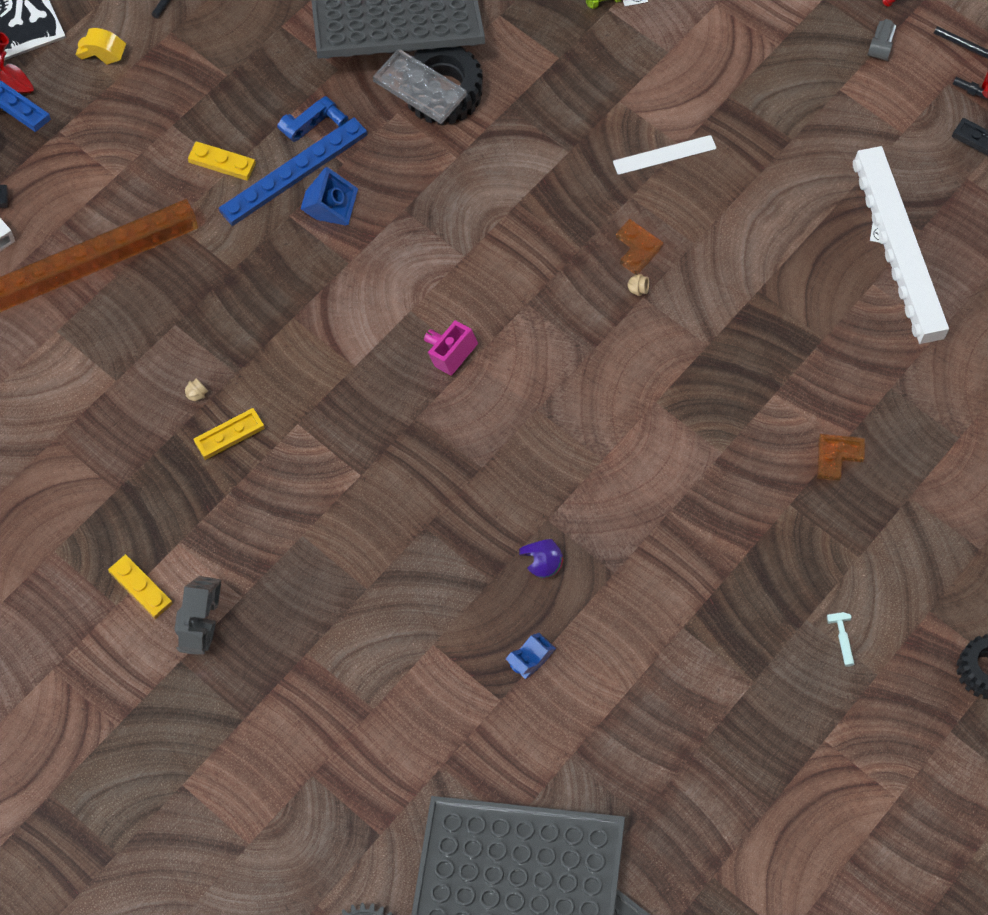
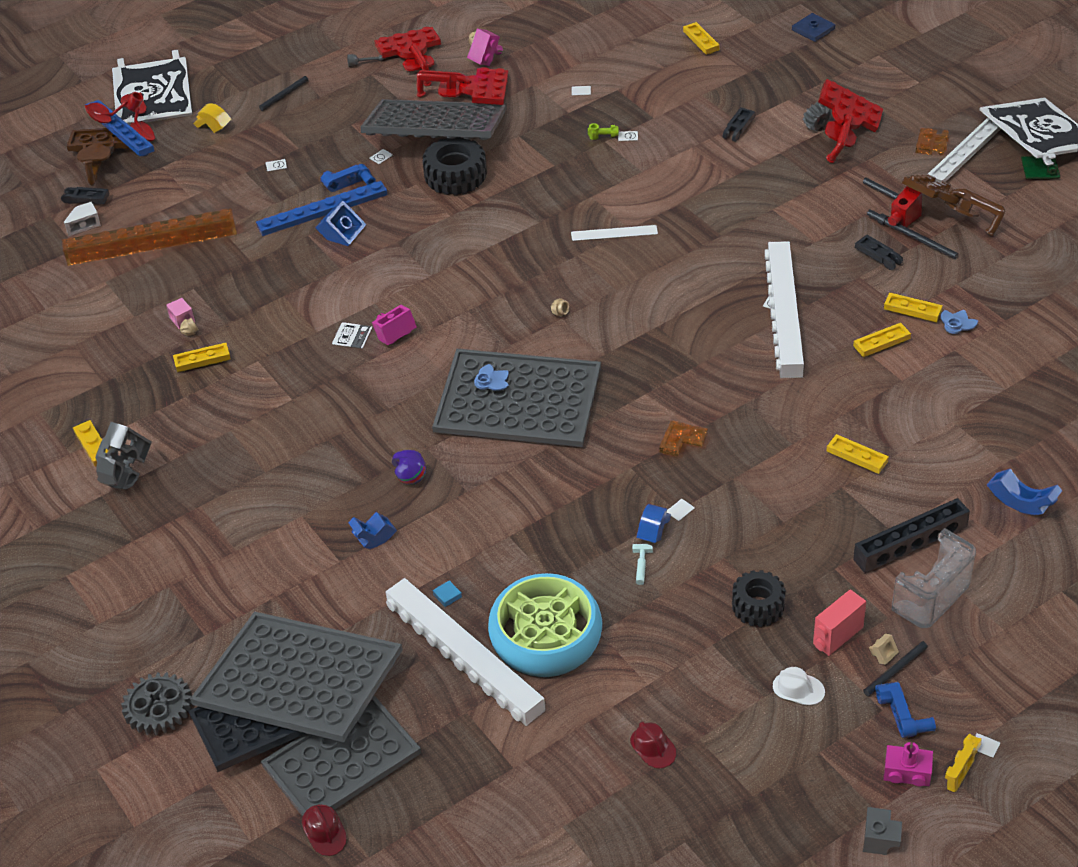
camera: 20 degrees right, 20 degrees down
(177, 370) = (179, 311): none -> bright pink brick
(208, 107) = (275, 165): none -> white sticker
(221, 161) = (271, 196): yellow plate -> none
(337, 73) = (381, 156): none -> white sticker
(399, 365) = (352, 335): none -> sticker
(419, 86) = (431, 157): clear plate -> none
(599, 409) = (491, 379): none -> medium blue plate
(632, 428) = (544, 402): none -> dark grey plate
(640, 723) = (447, 593): none -> dark azure tile
(642, 246) = (572, 284): clear orange plate -> none
(688, 800) = (465, 652): none -> white brick
(810, 769) = (545, 625): none -> wheel
(845, 586) = (652, 523): none -> blue brick
(862, 554) = (680, 509): none -> white sticker
(881, 43) = (815, 183): dark grey piece -> none
(927, 878) = (653, 745): none -> dark red piece

